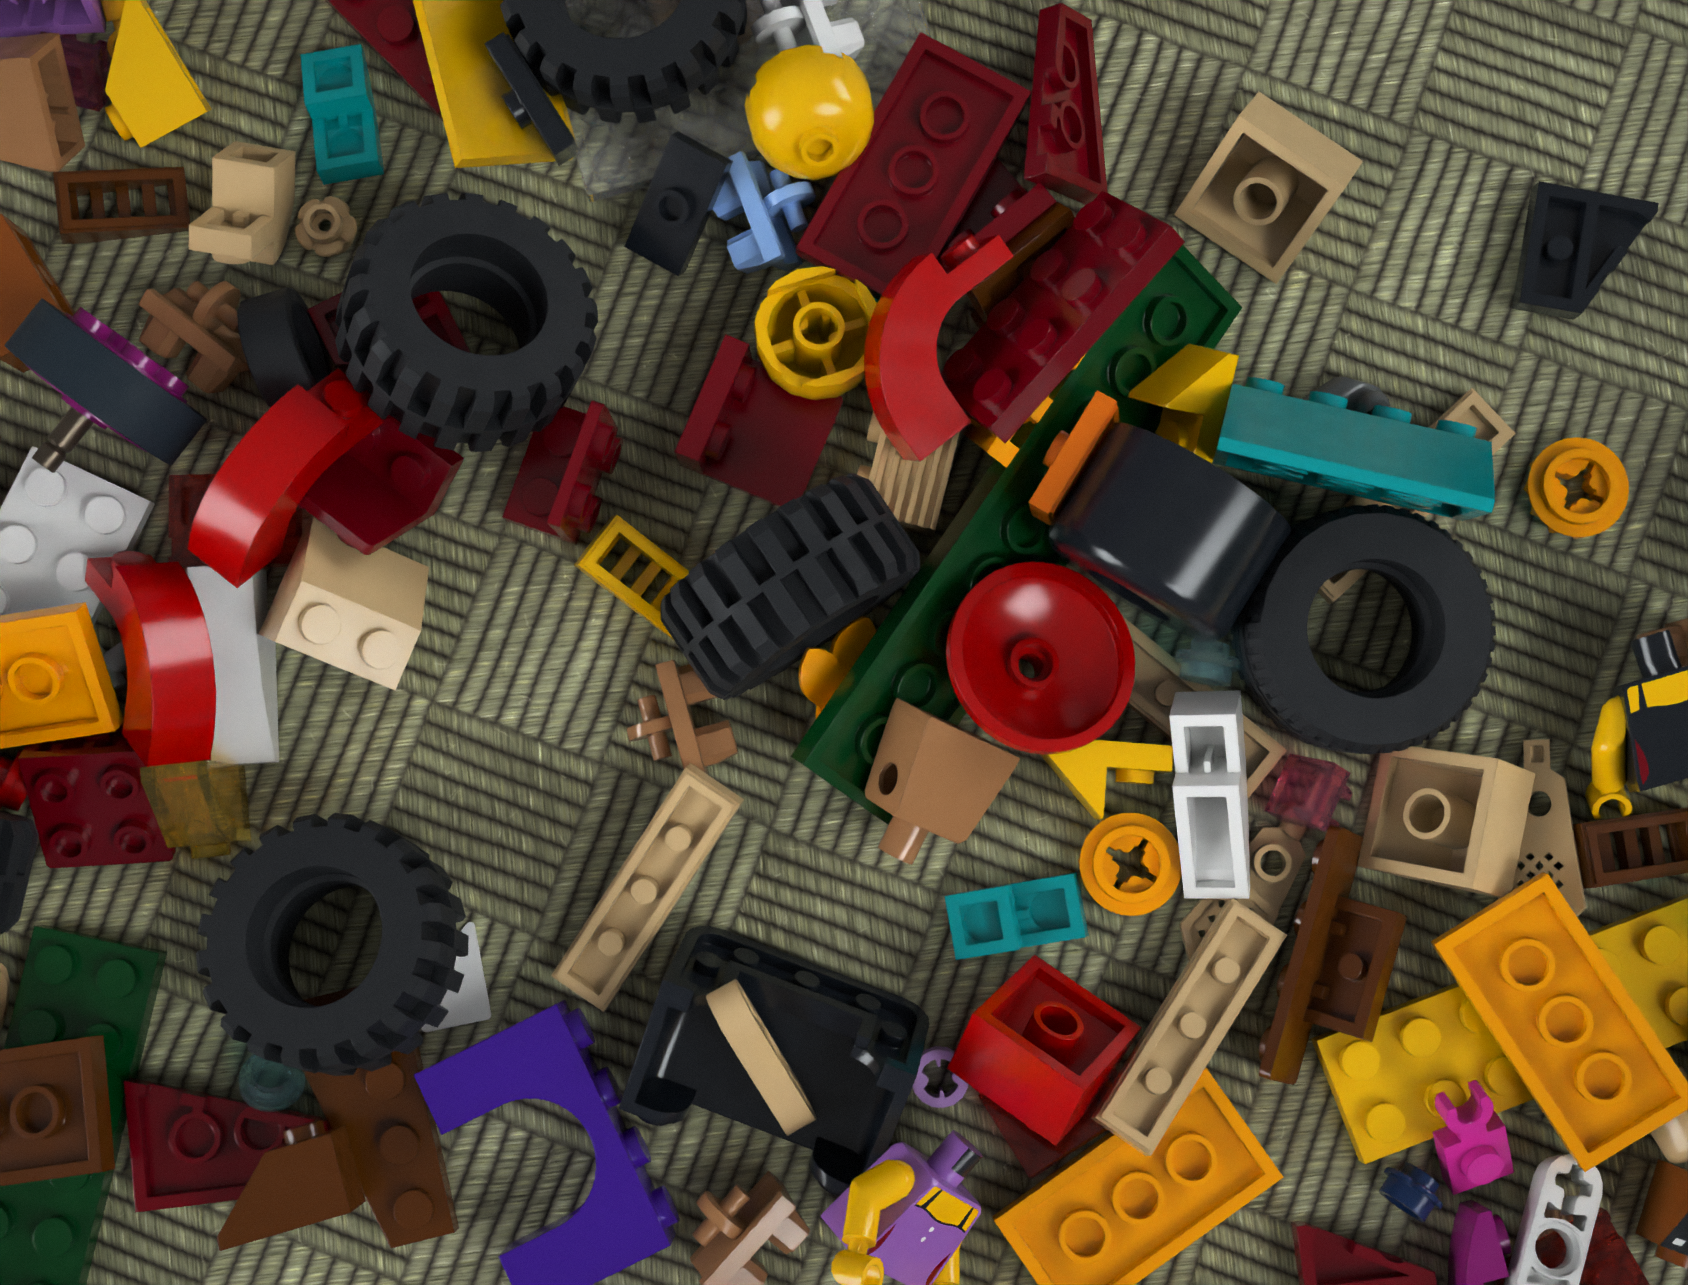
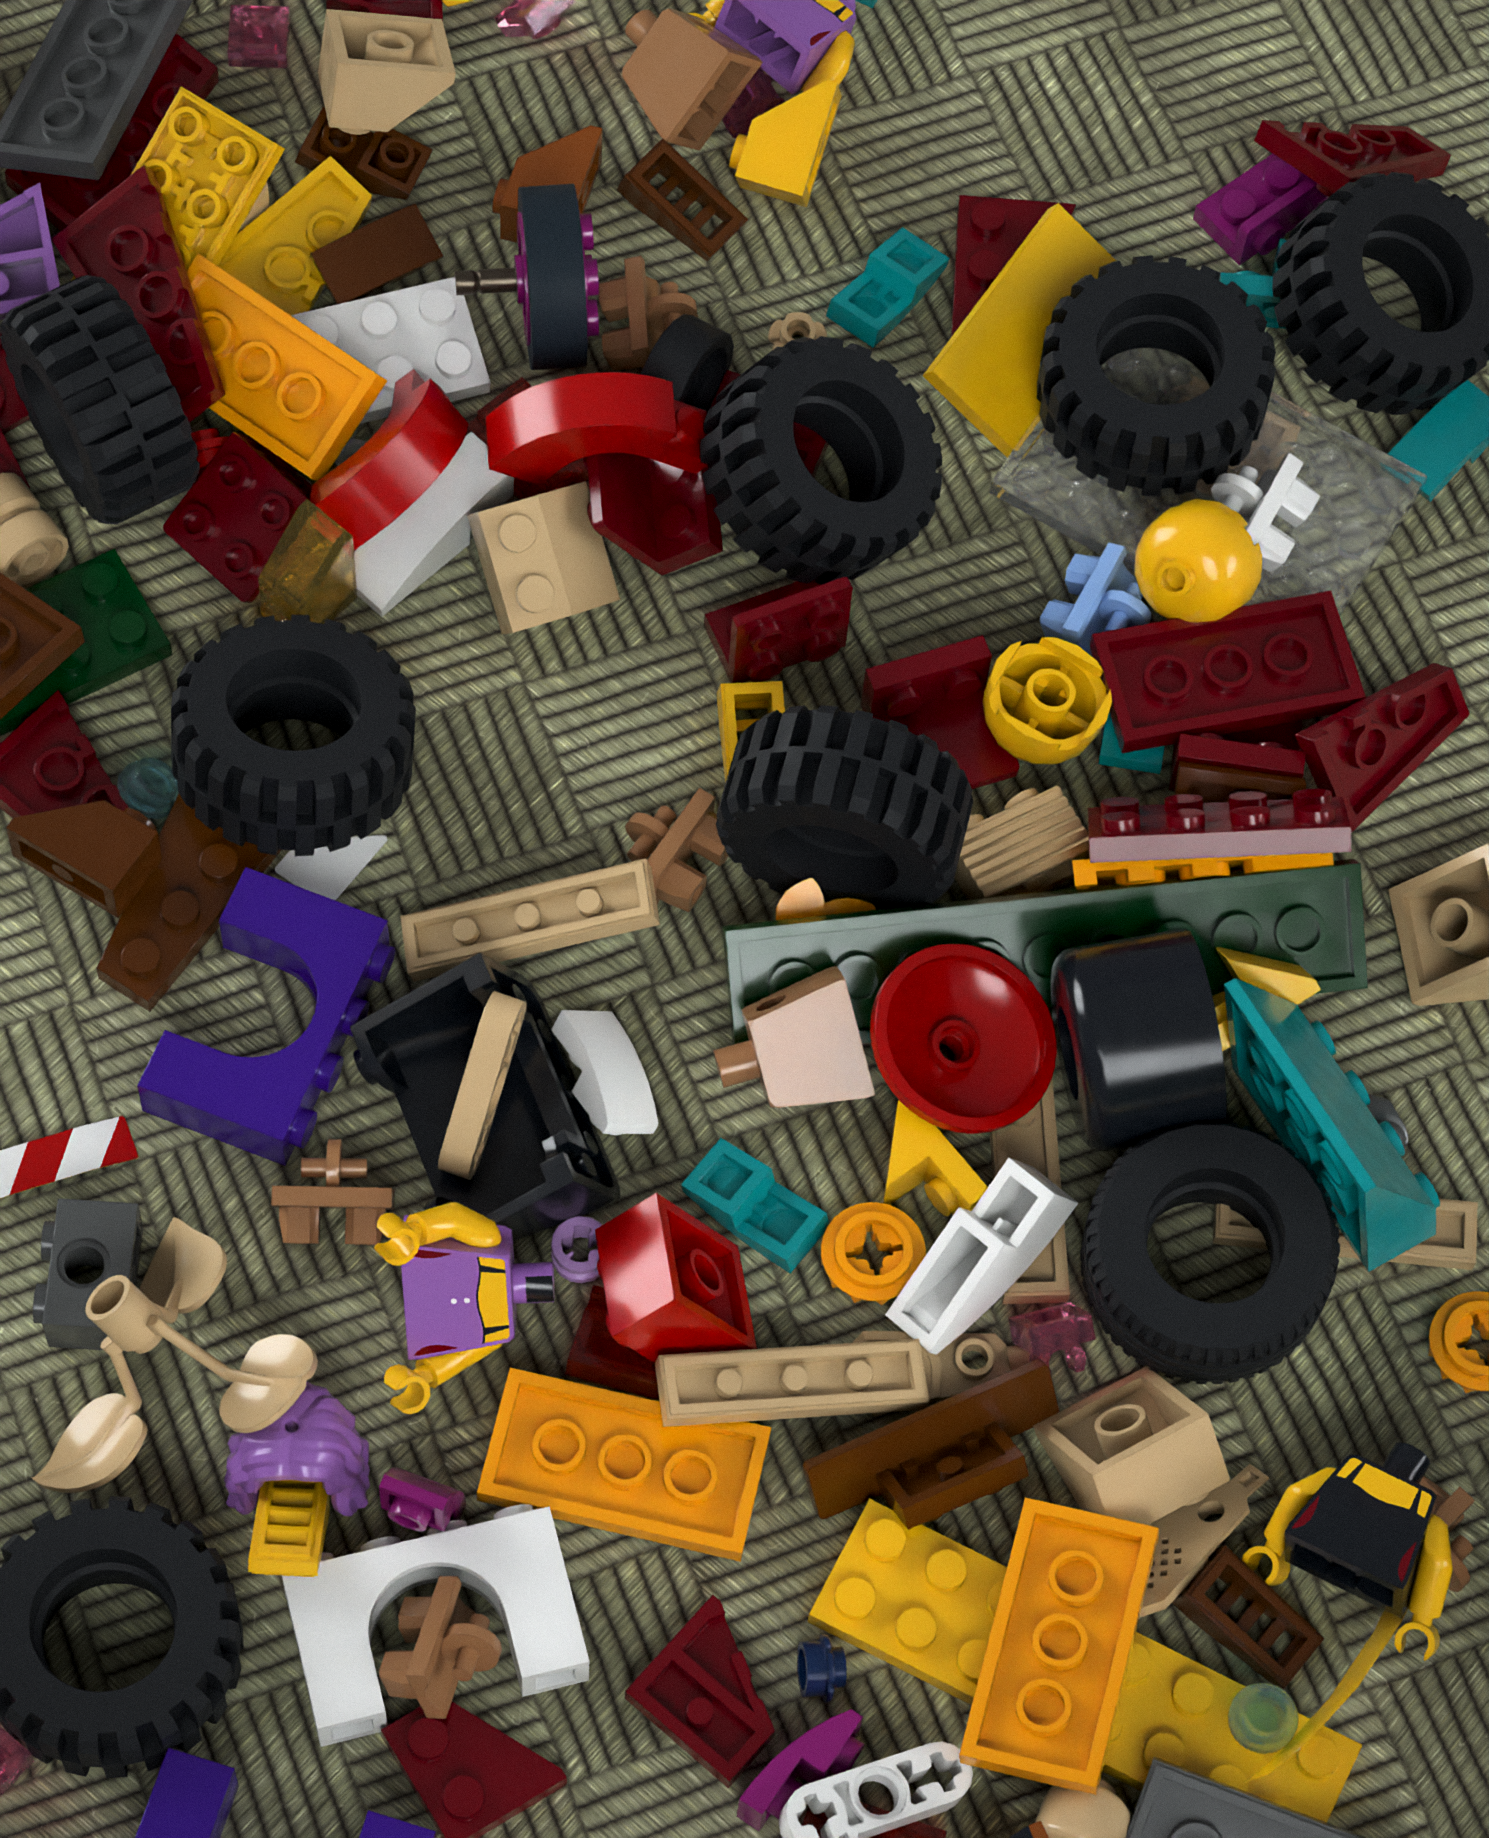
camera: 40 degrees right, 20 degrees down
(249, 205) = (764, 277): tan brick -> none
(528, 99) = (1017, 383): black plate -> none
(678, 203) = (1046, 542): black plate -> none
(834, 940) = (612, 1076): none -> white slope
(902, 344) = (1062, 779): red arch -> none
(1070, 456) = (1128, 921): orange plate -> none
(1207, 663) = (1075, 1168): clear light blue plate -> none
(1474, 1142) = (899, 1678): dark pink plate -> none

